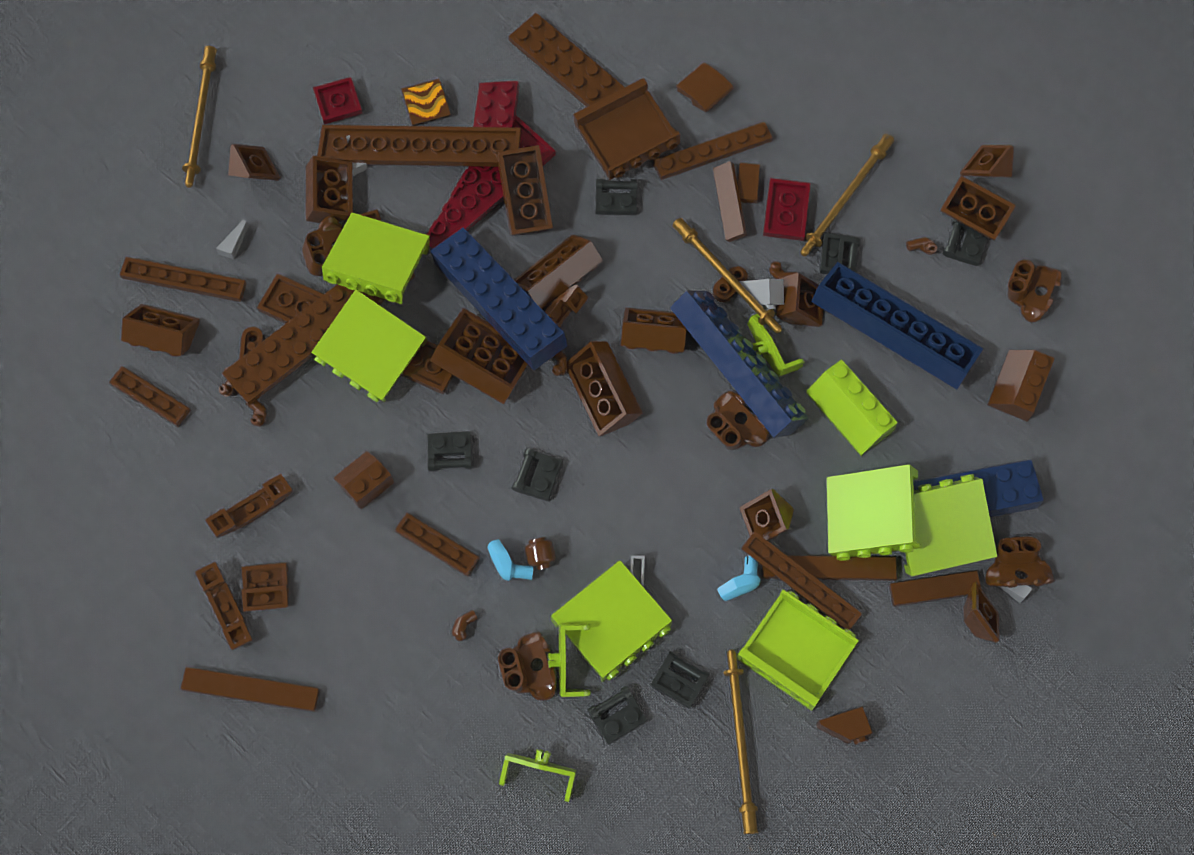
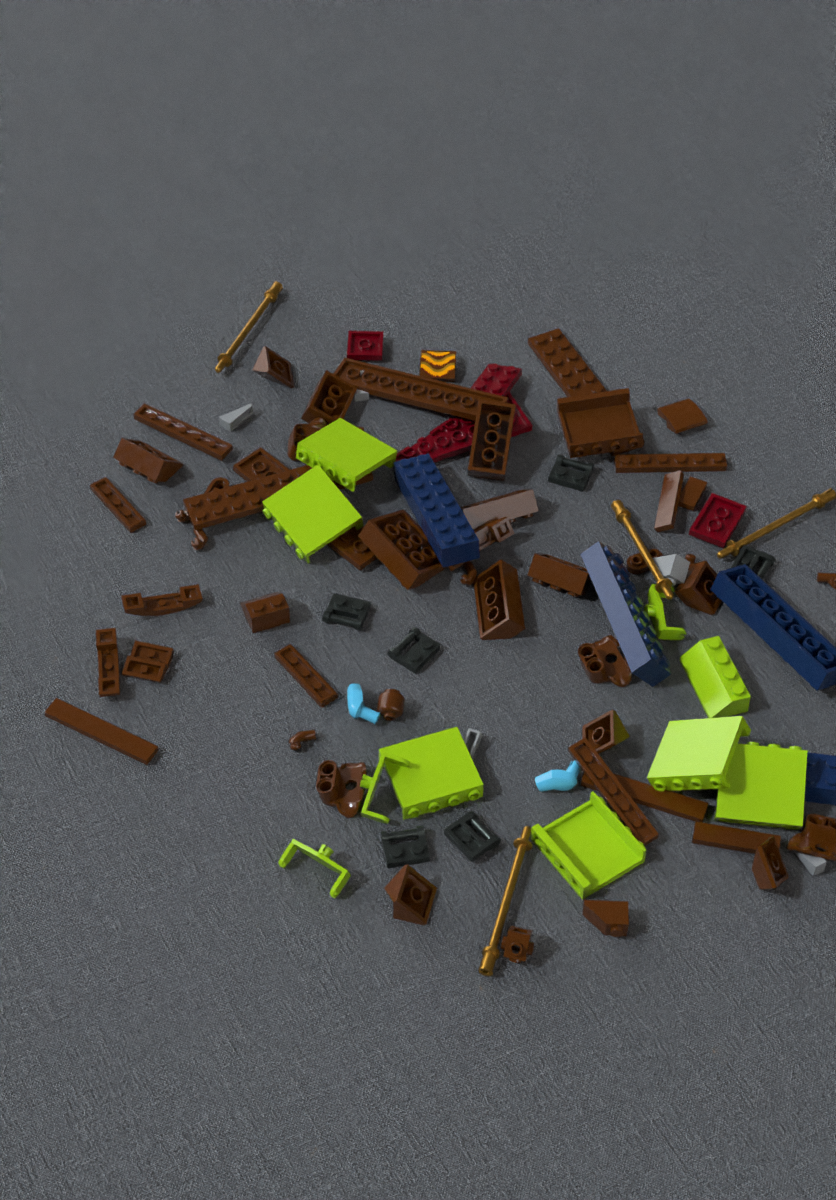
camera: 20 degrees right, 20 degrees down
(647, 774) = (411, 896): none -> reddish brown slope
(772, 792) = (519, 937): none -> reddish brown brick

